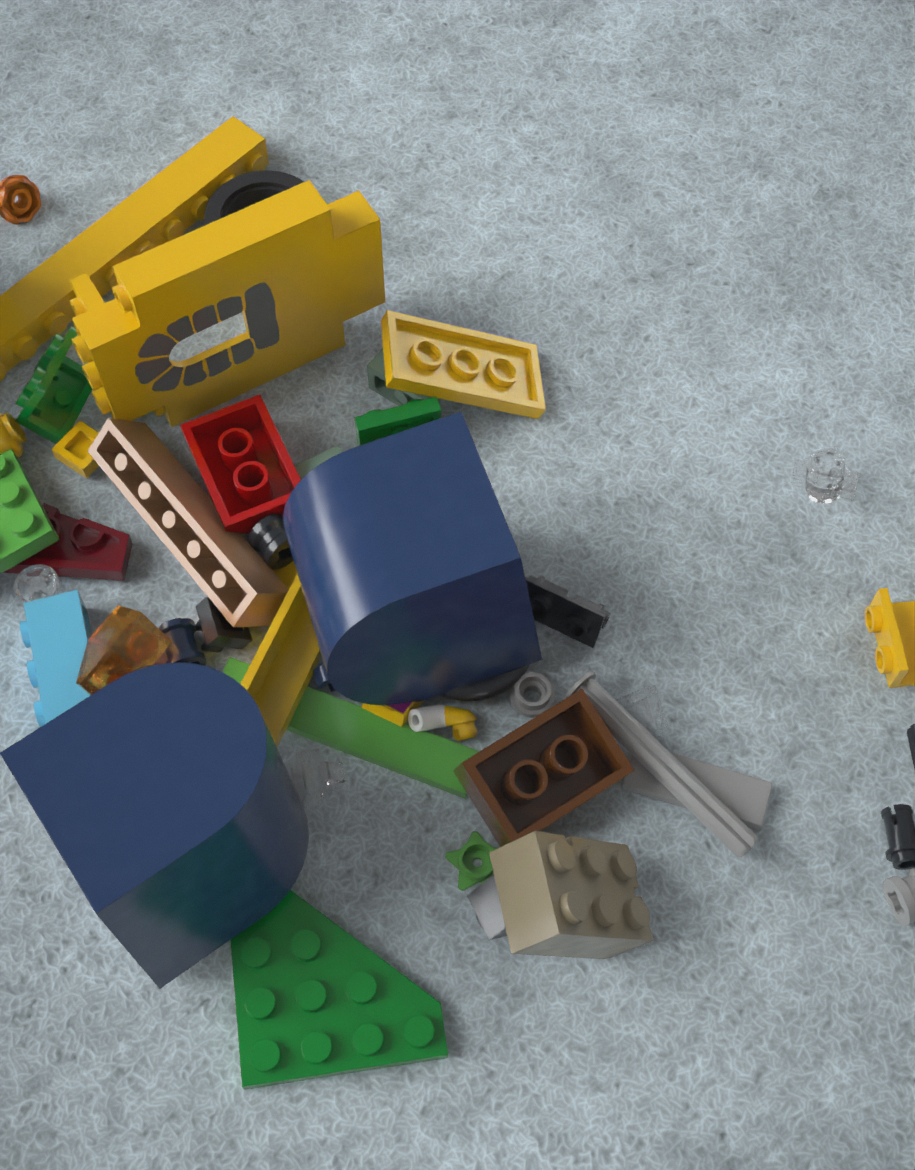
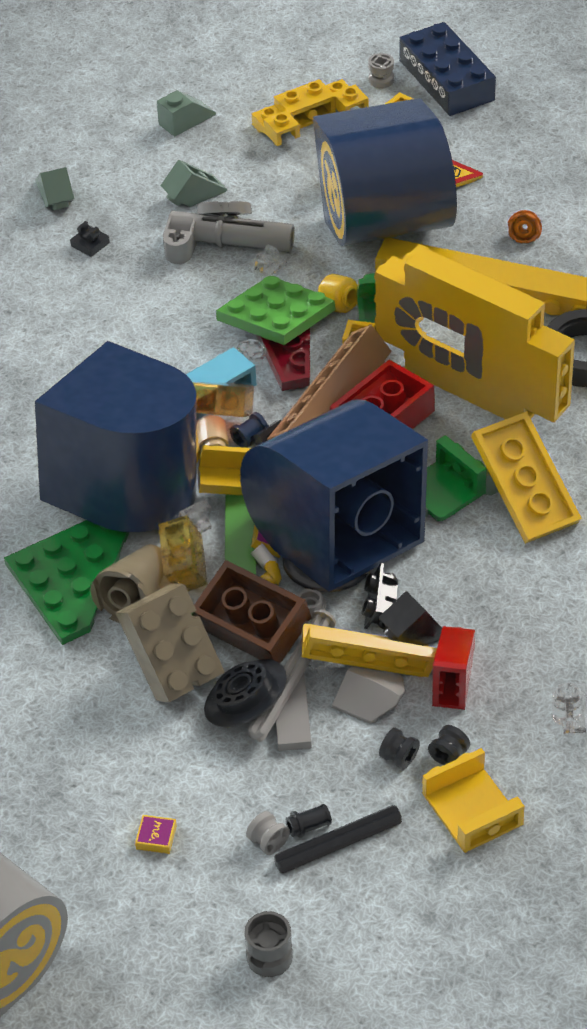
camera: 70 degrees right, 15 degrees down
(382, 820) = (183, 553): none -> clear yellow brick
(402, 908) = (128, 580): none -> dark tan cone
(642, 587) = (410, 622): none -> black slope
(655, 656) = (366, 651): none -> yellow panel
(670, 832) = (245, 693): none -> black wheel
(709, 680) = (368, 693): none -> light grey slope
(724, 565) = (453, 667): none -> red slope
(826, 682) = (399, 748): none -> black wheel
(842, 625) = (449, 745): none -> black wheel
(857, 1047) = (156, 834): none -> tile

